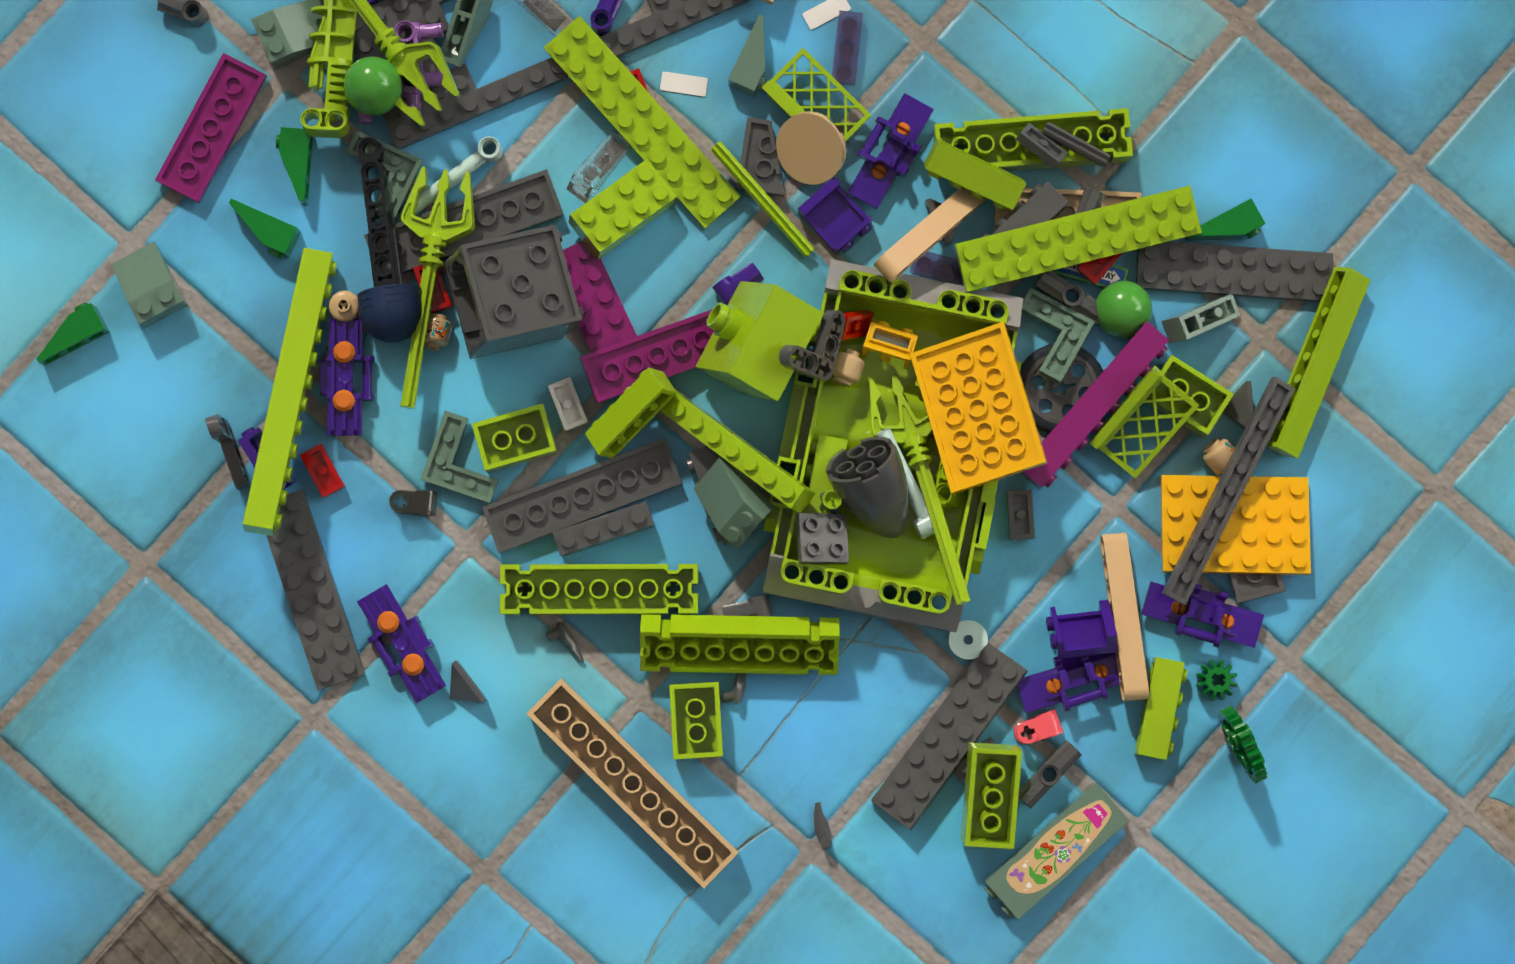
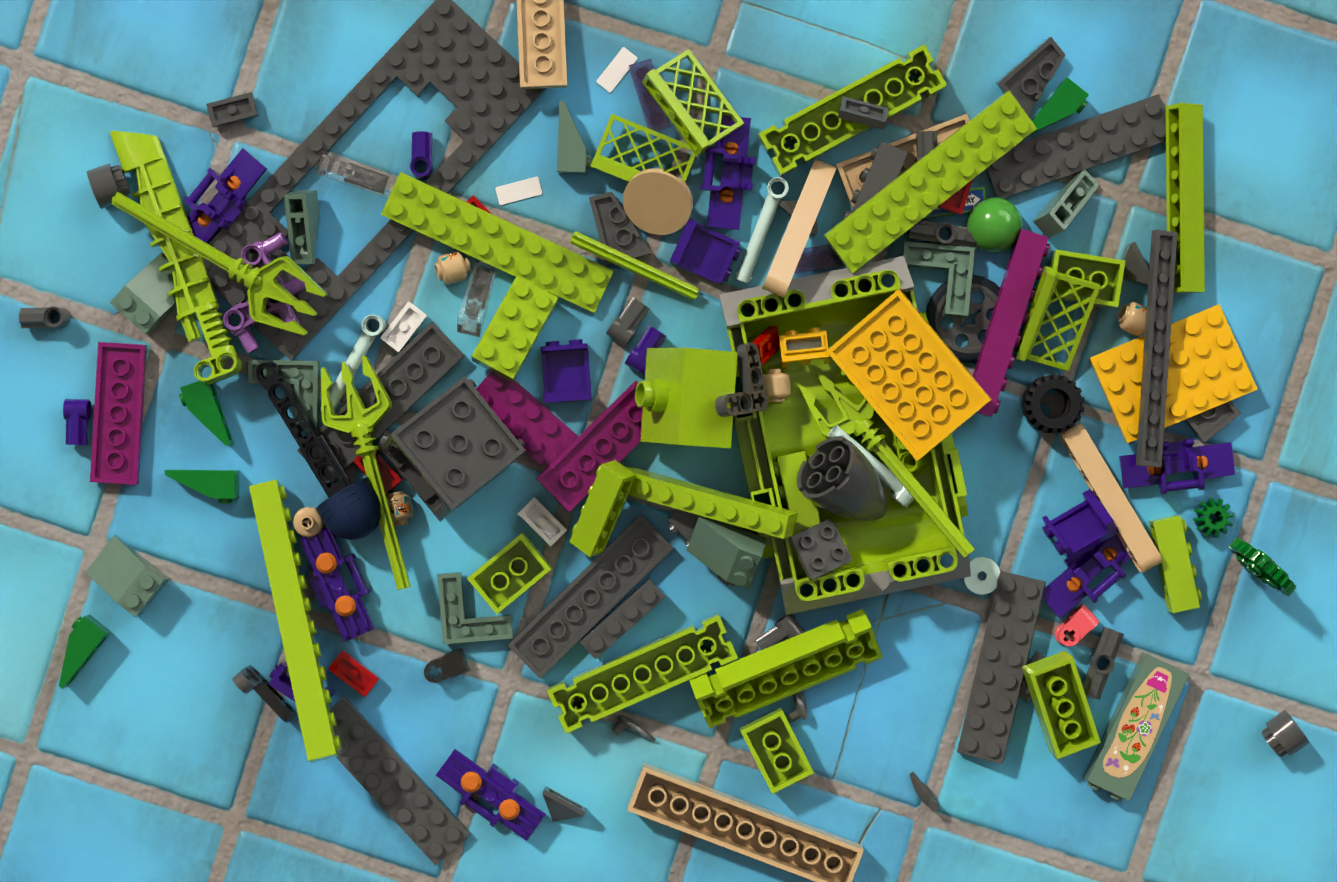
camera: 20 degrees left, 5 degrees up
(171, 112) = (77, 414): none -> dark purple piece
(372, 86) = (245, 317): bright green piece -> none
(518, 163) = (404, 326): none -> white plate
(588, 127) = (452, 268): none -> tan head
(653, 272) = (566, 371): none -> dark purple panel
(728, 253) = (625, 326): none -> dark grey piece
(830, 500) = (813, 512): lime piece -> none
(866, 75) = (680, 116): none -> lime fence
(897, 219) = (760, 231): none -> light aqua piece
(974, 174) = (814, 164): lime brick -> none
(1020, 515) = (981, 446): dark grey plate -> none
(1076, 144) = (892, 97): dark grey axle -> none
(1121, 487) = (1072, 399): none -> black tyre
(1197, 922) = (1284, 735): none -> dark grey piece
(1220, 183) = (1032, 74): none -> dark grey wing

